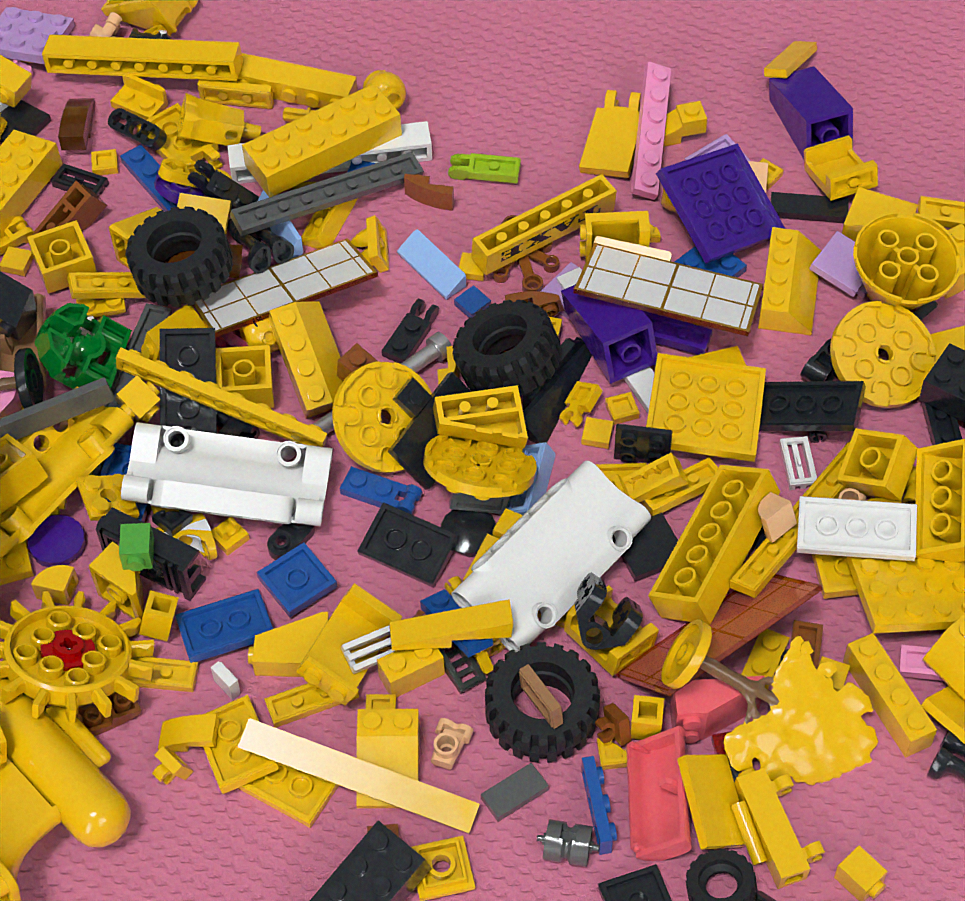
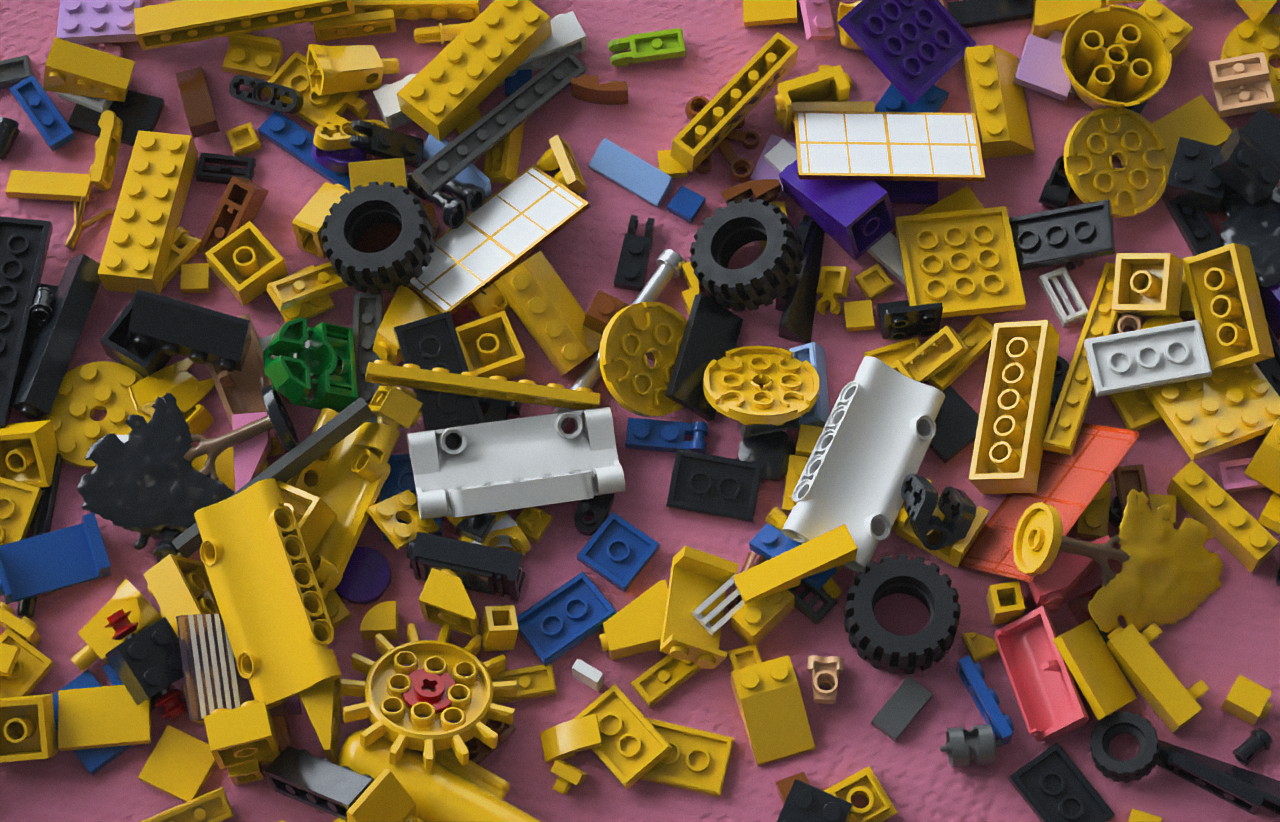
camera: 15 degrees left, 10 degrees up
(136, 546) = (463, 569): bright green brick -> none
(359, 775) = (753, 736): yellow tile -> none
(412, 397) = (672, 332): black plate -> none
(483, 416) = (750, 334): yellow wedge -> none
(541, 696) = (908, 614): medium nougat tile -> none
(615, 725) = (976, 618): dark orange tile -> none
(749, 833) = (1134, 689): yellow piece -> none
(776, 516) = (1067, 365): light nougat brick -> none

